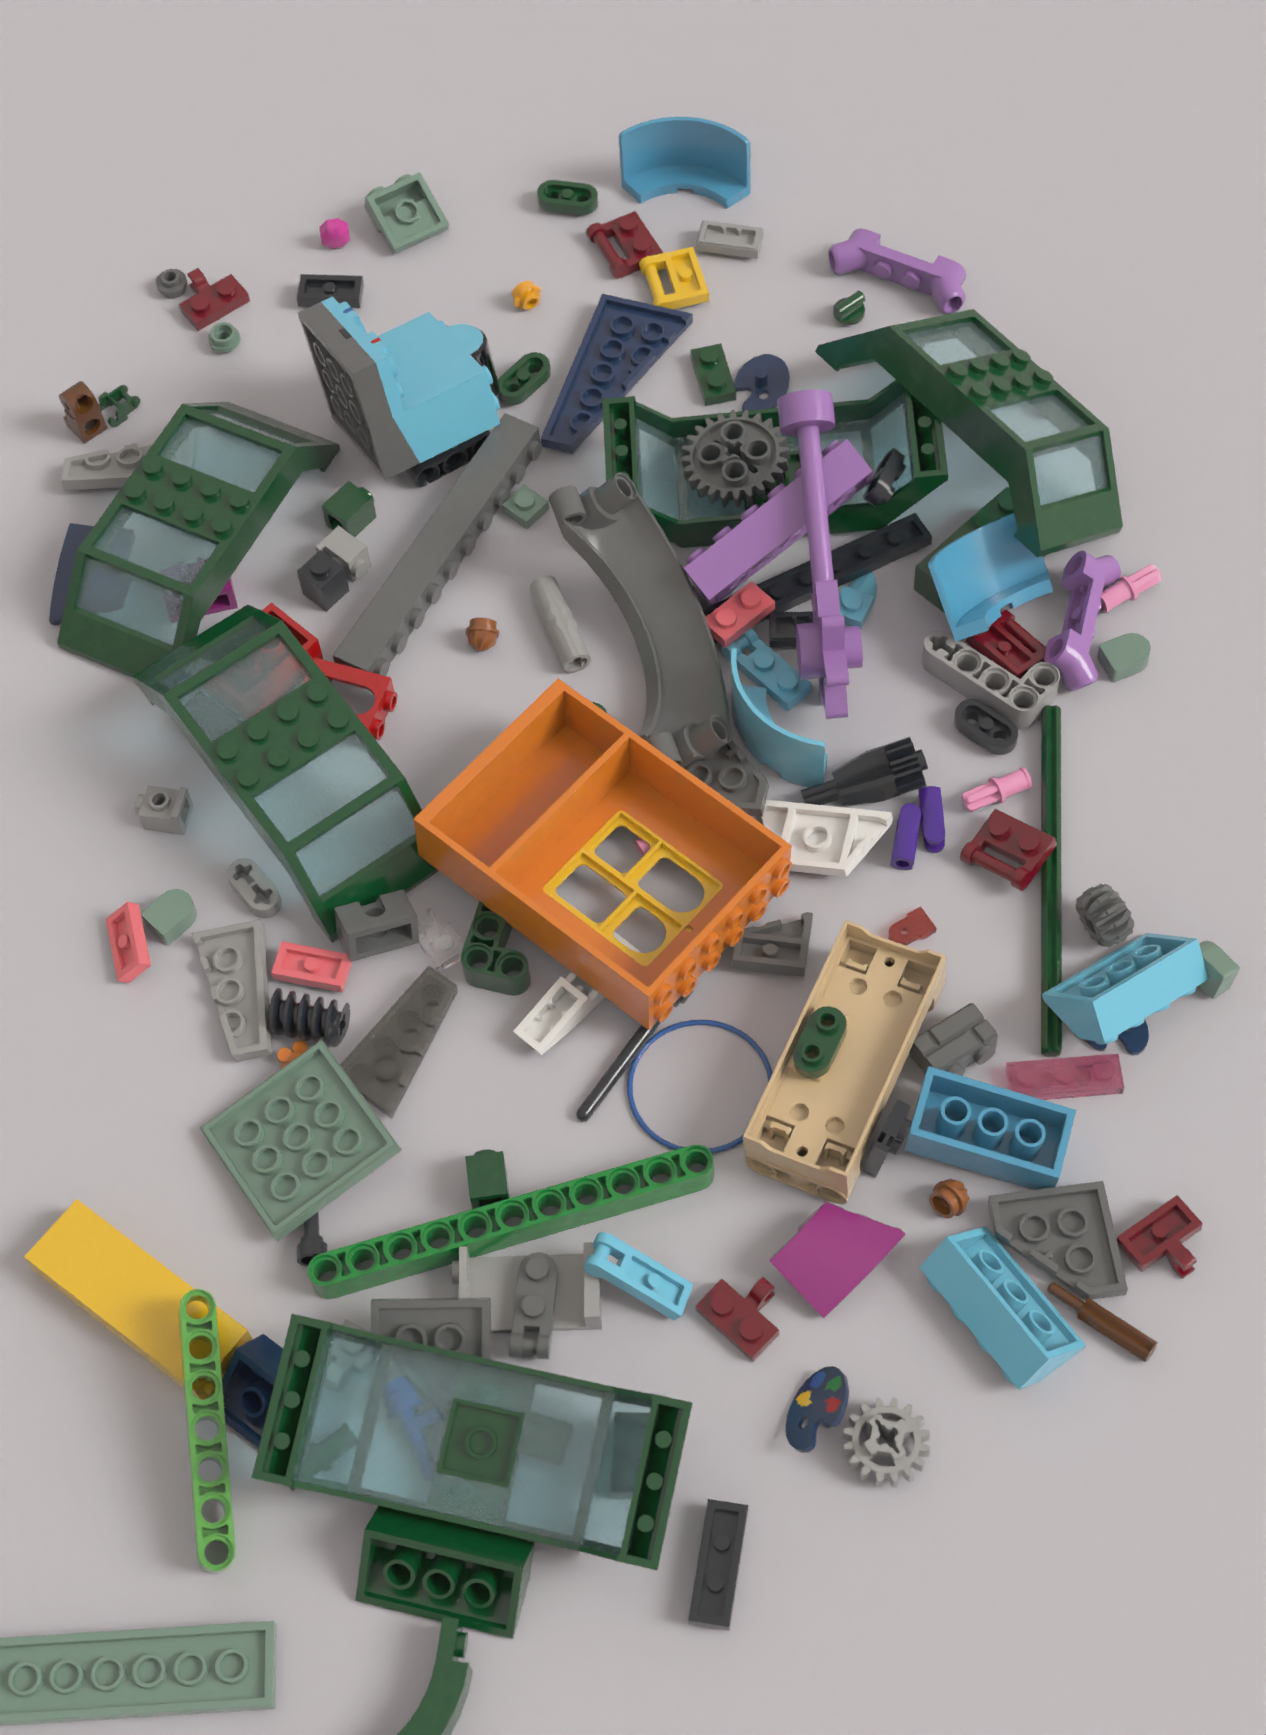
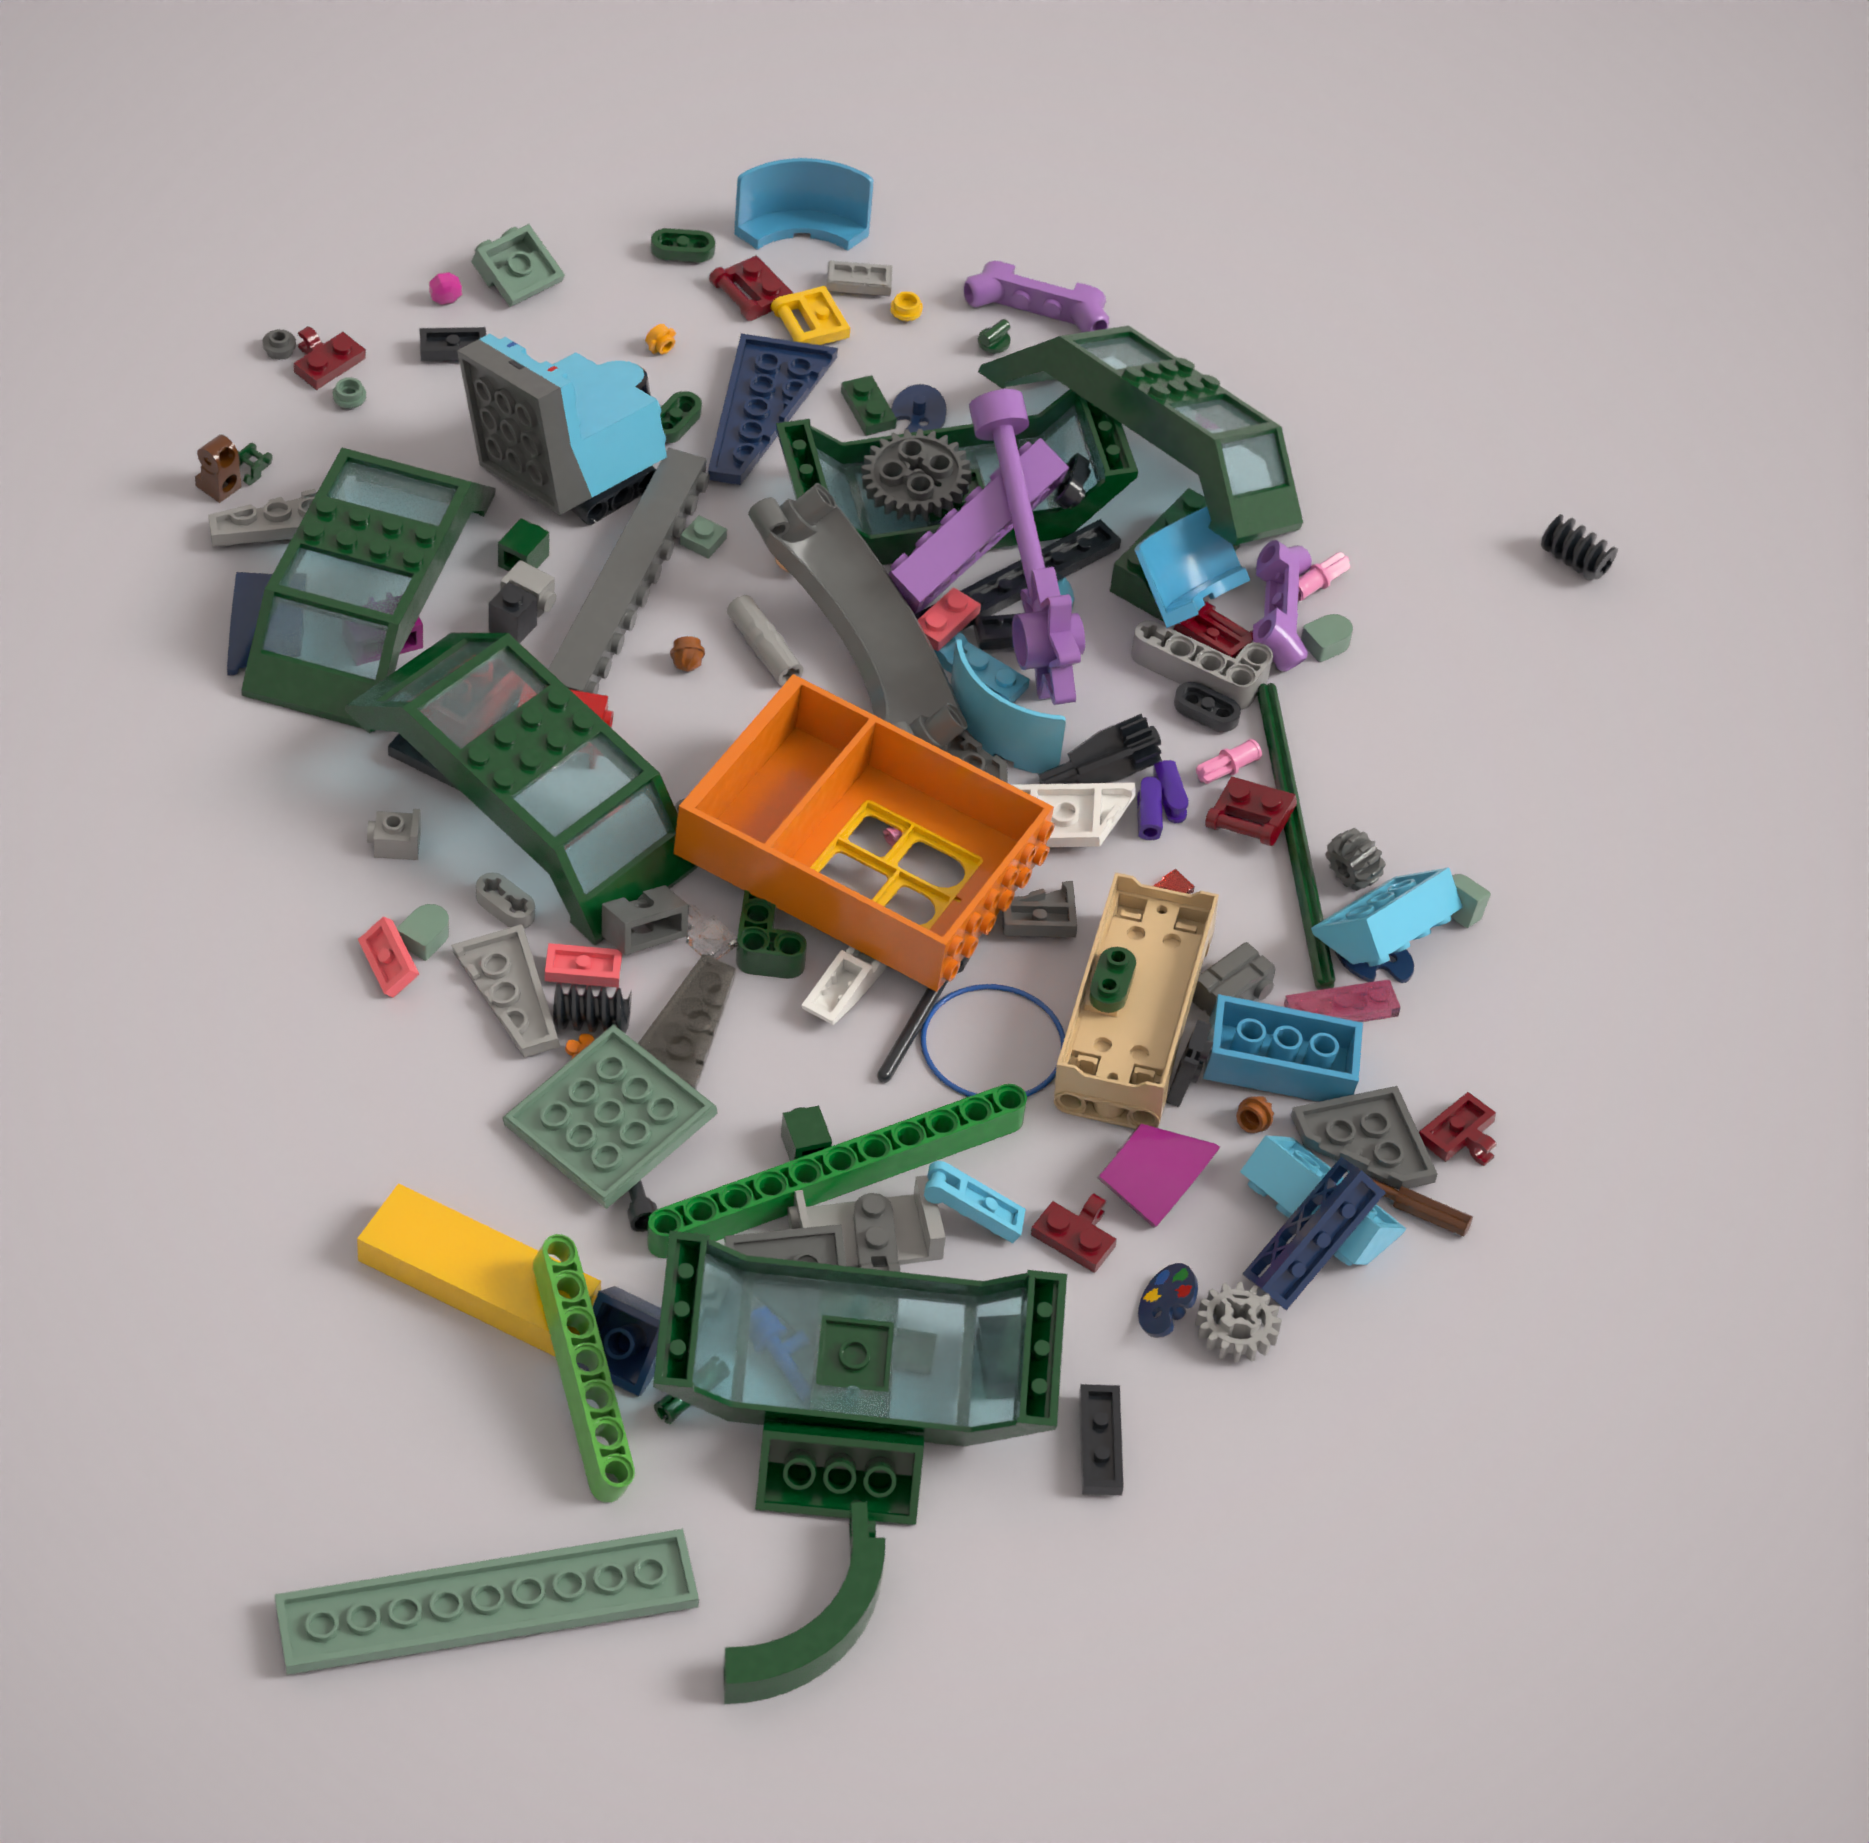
camera: 20 degrees left, 10 degrees down
(770, 271) = (906, 306): none -> yellow plate
(980, 1359) = (1316, 1234): none -> dark blue fence

